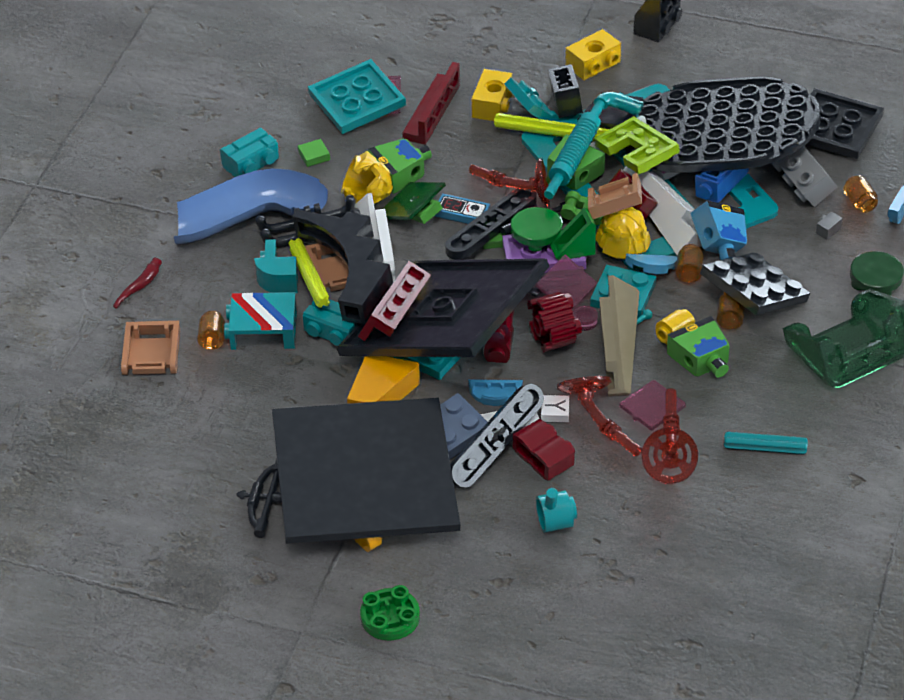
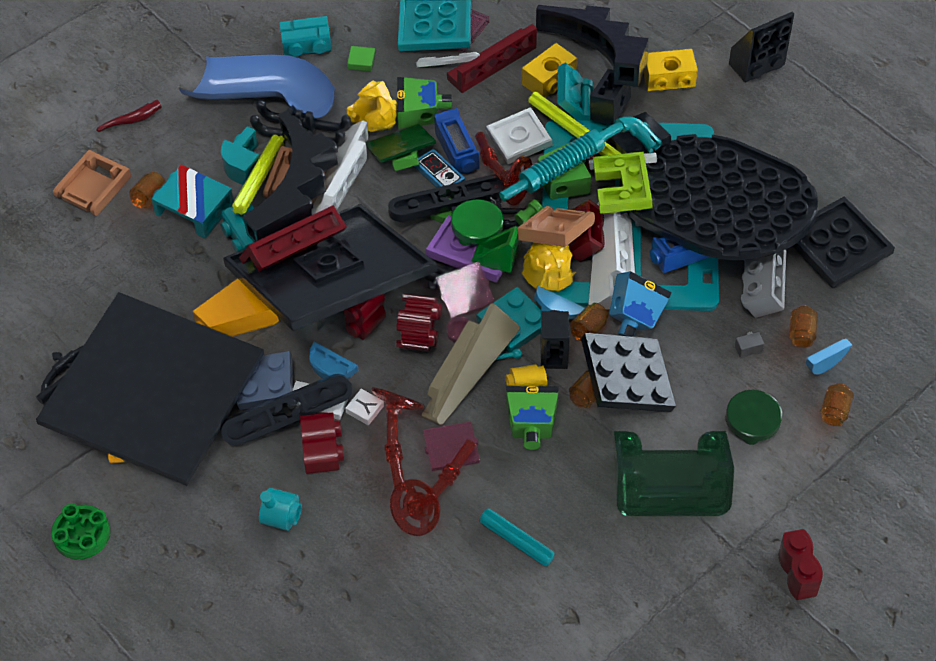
camera: 30 degrees right, 10 degrees up
(395, 122) = (433, 61): none -> white piece
(459, 179) = (456, 141): none -> blue window
(502, 45) = (610, 38): none -> black arch
(507, 153) = (519, 135): none -> white tile
(678, 283) = (554, 339): none -> black brick

